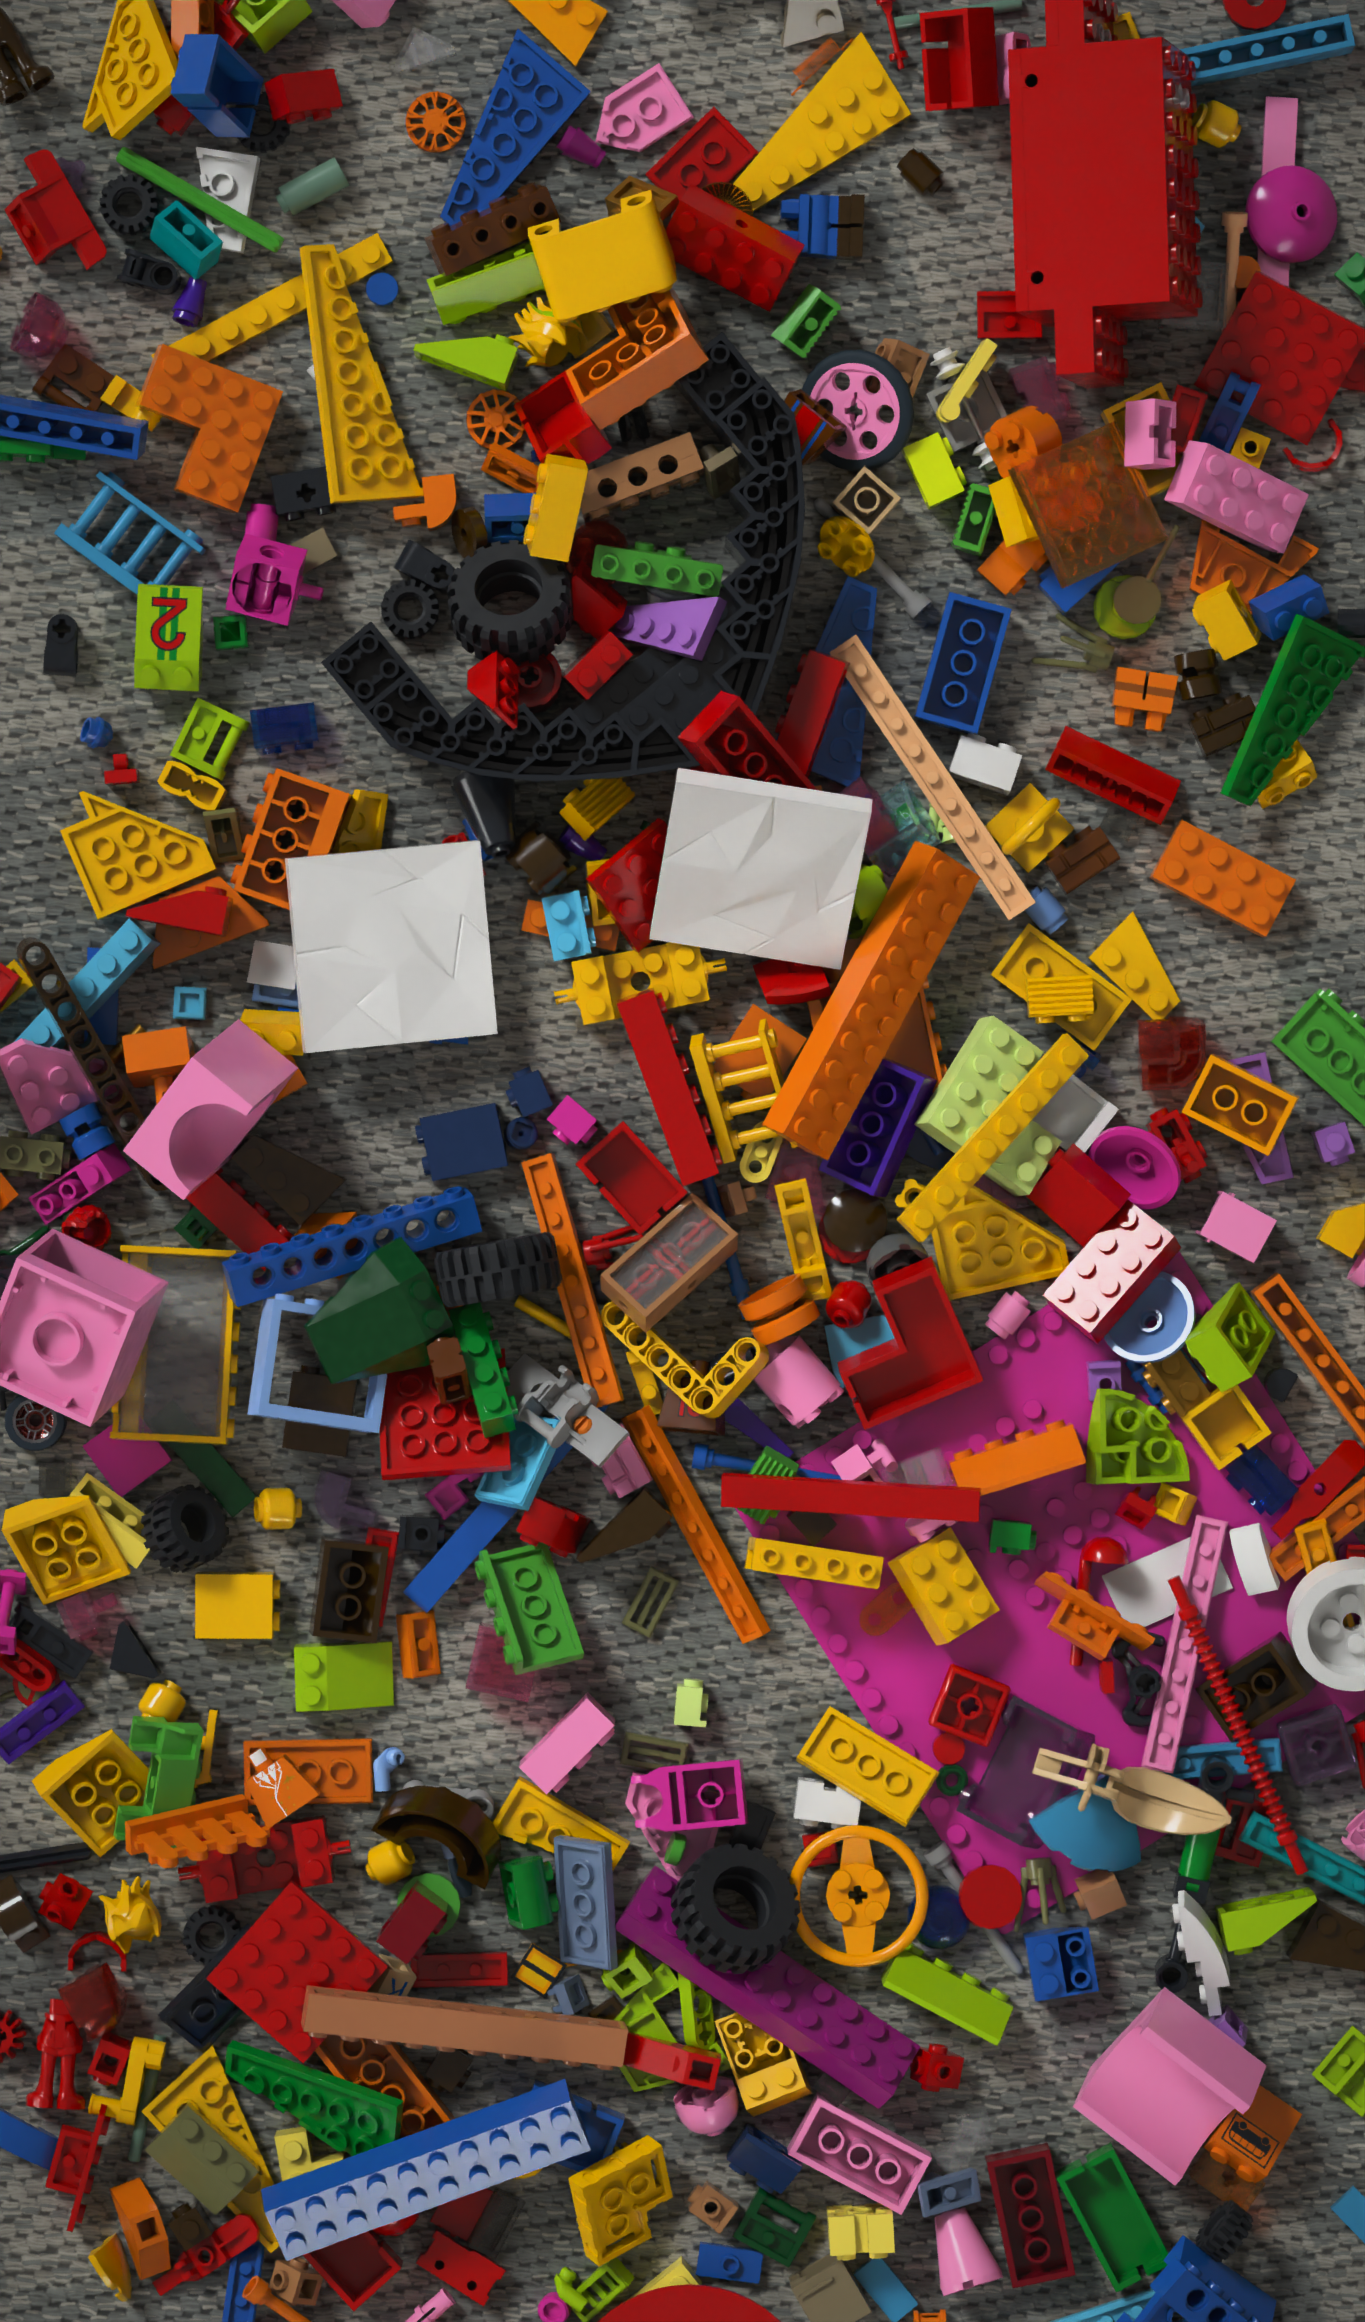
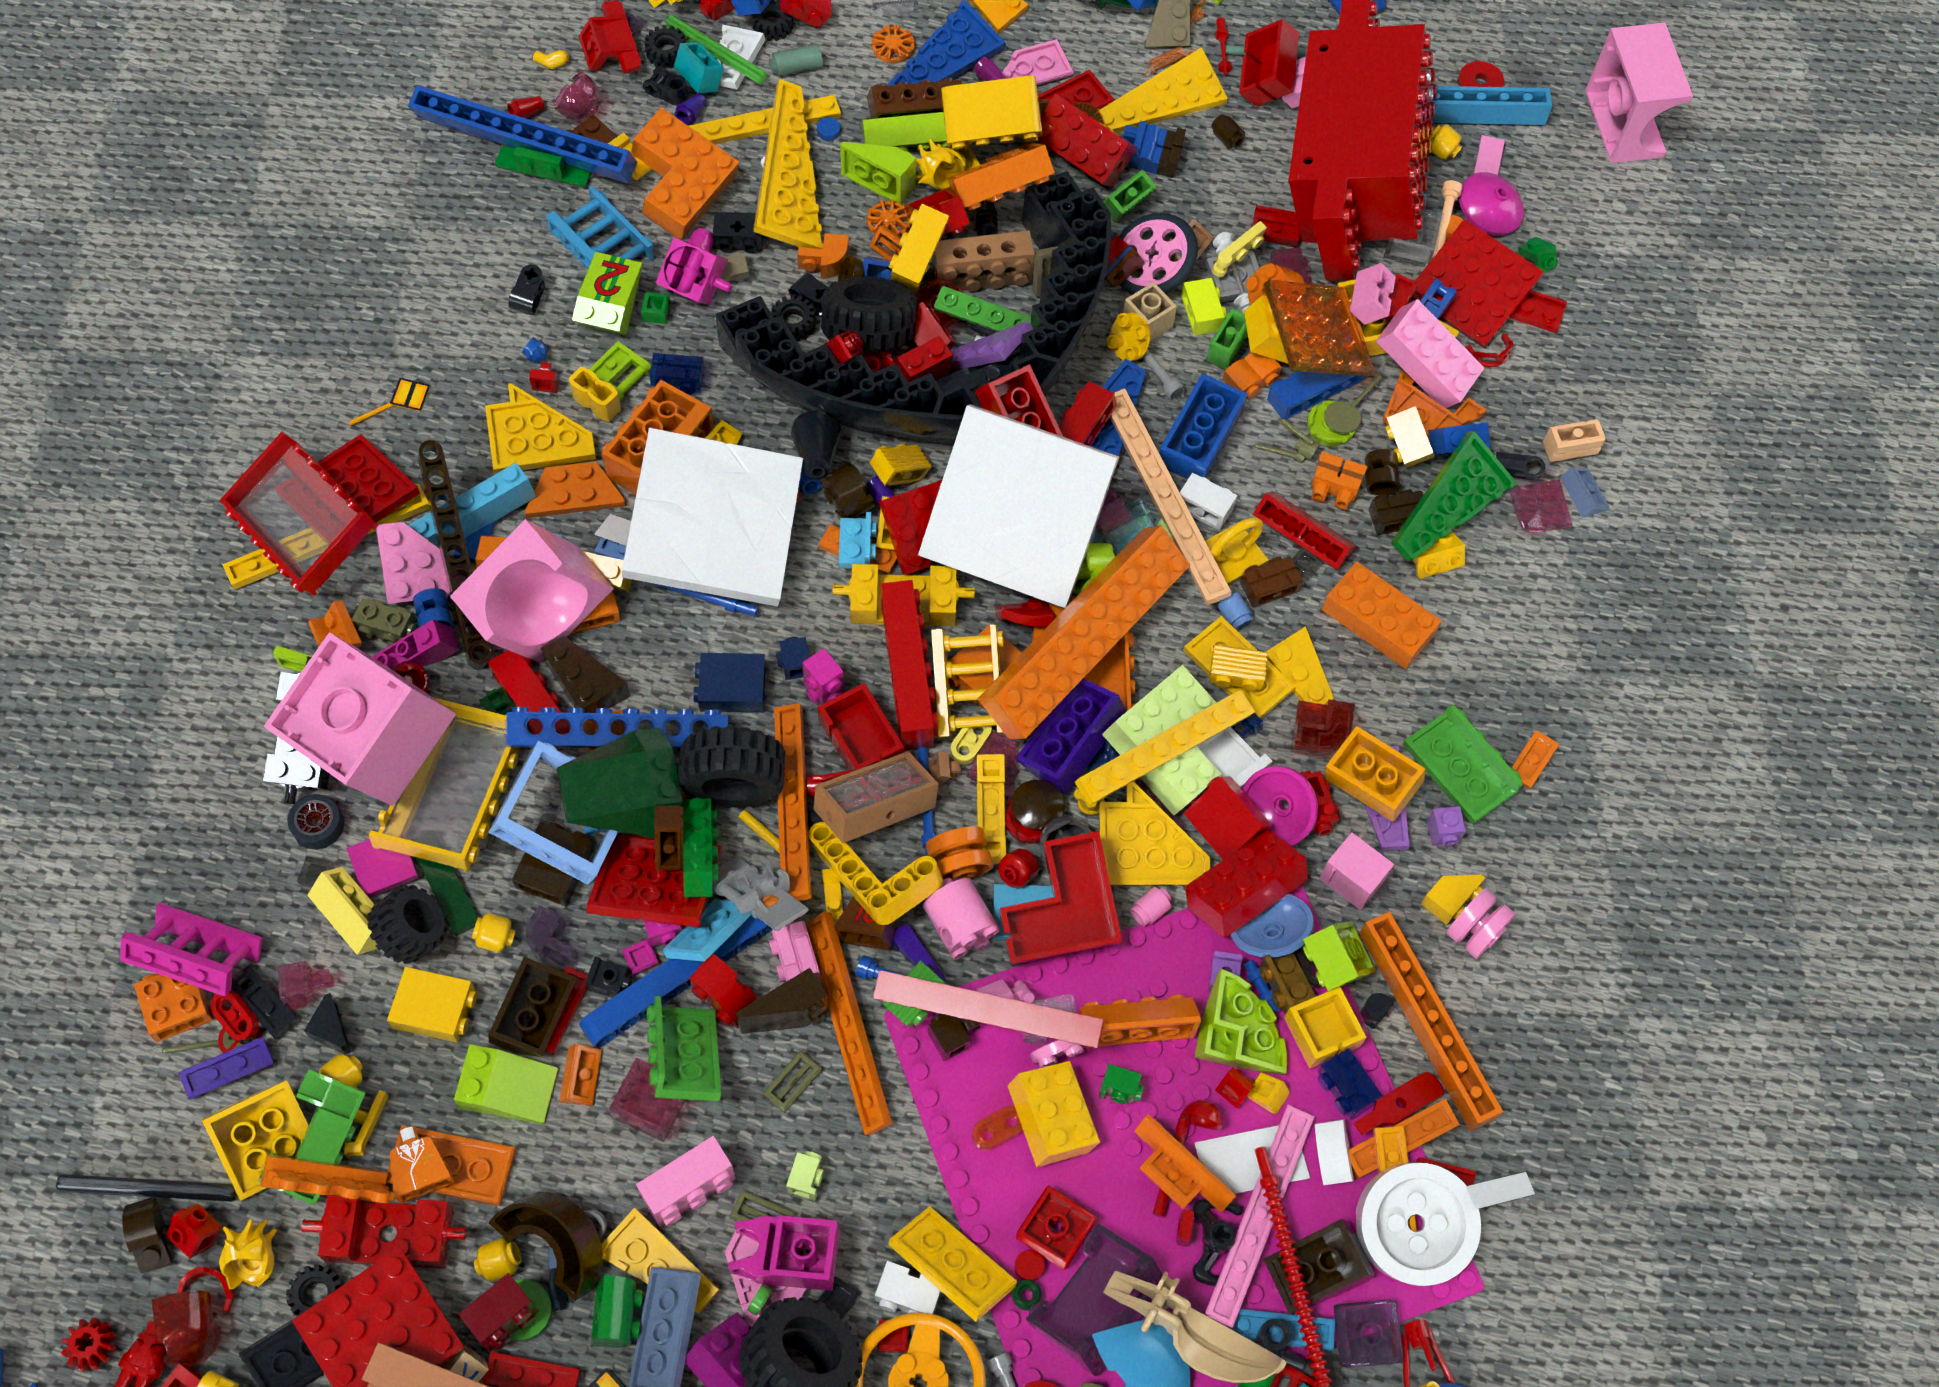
camera: 10 degrees right, 25 degrees down
(63, 1546) = (302, 922): yellow slope -> none
(193, 911) = (560, 464): red slope -> none
(224, 834) = (606, 425): olive slope -> none
(384, 1765) = (518, 1174): light blue arm -> none
(520, 1134) = (779, 688): dark blue tile -> none
(814, 1562) = (943, 1064): yellow panel -> none

